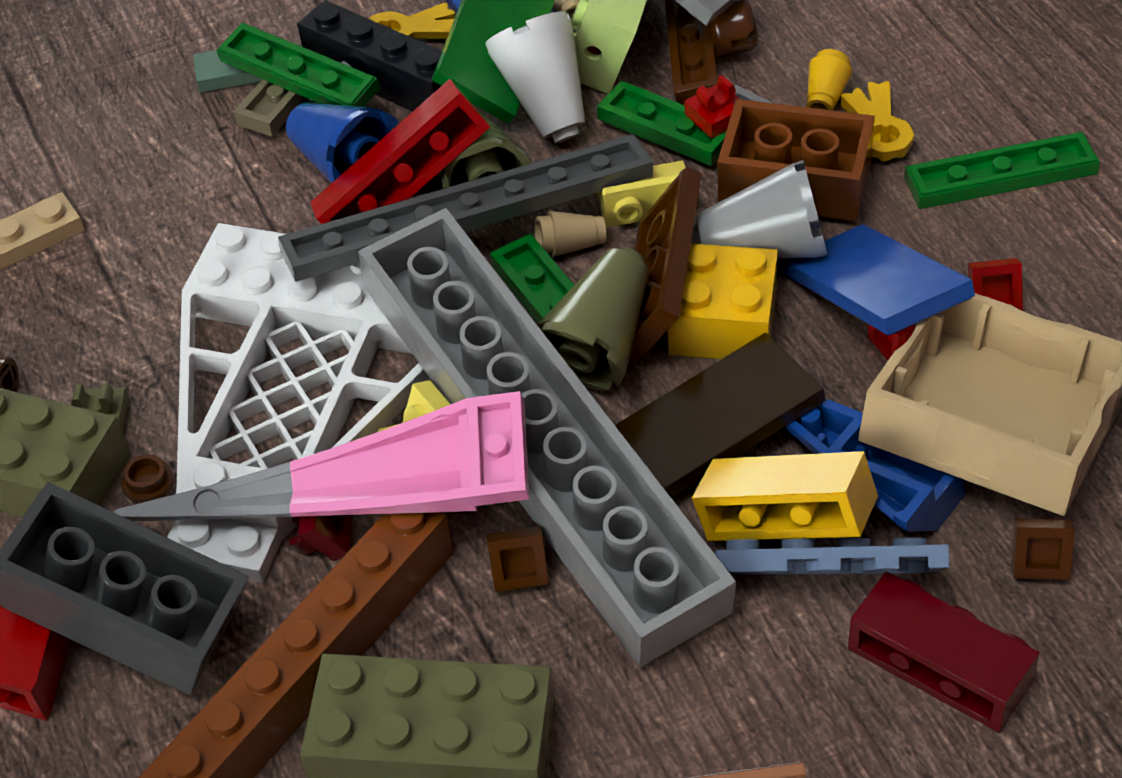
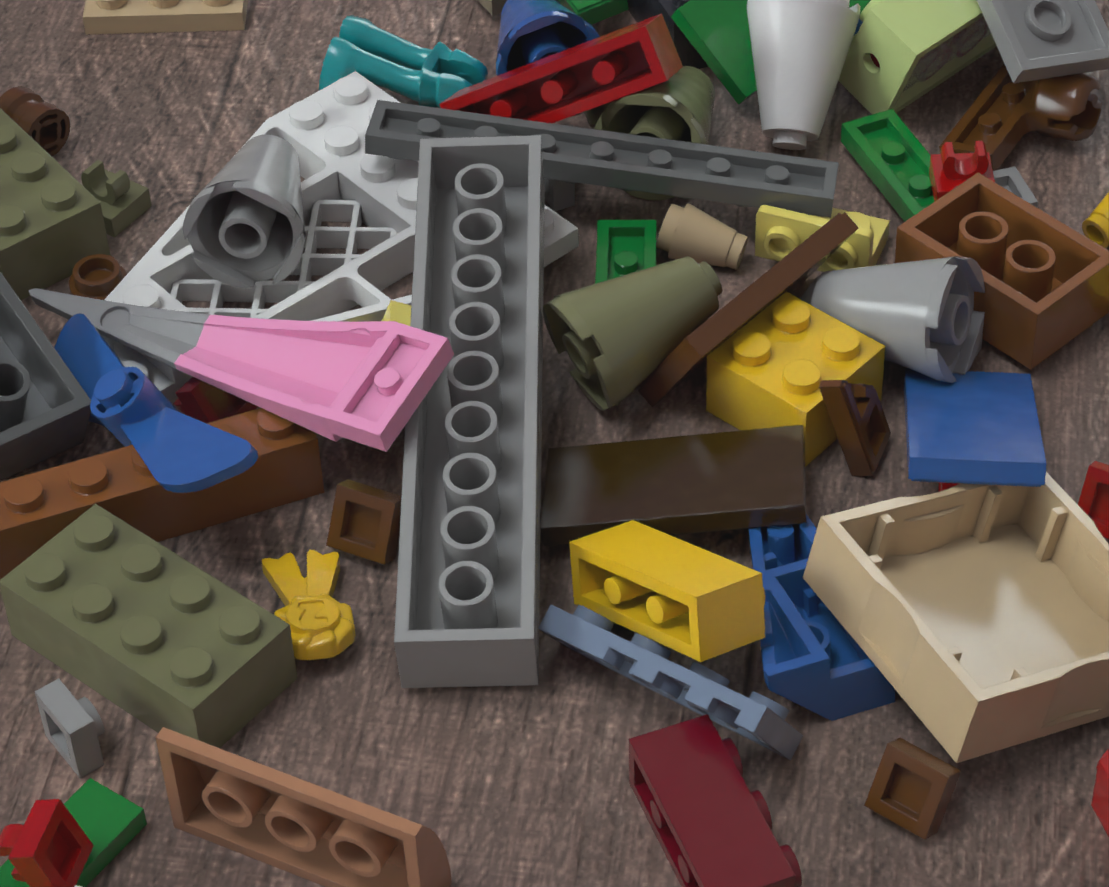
camera: 30 degrees right, 5 degrees down
(254, 368) = (250, 216): none -> light grey cone
(270, 202) = (398, 64): none -> teal piece
(371, 577) = (175, 447): none -> blue piece
(518, 638) = (316, 620): none -> yellow piece
(796, 315) = (857, 423): none -> reddish brown tile

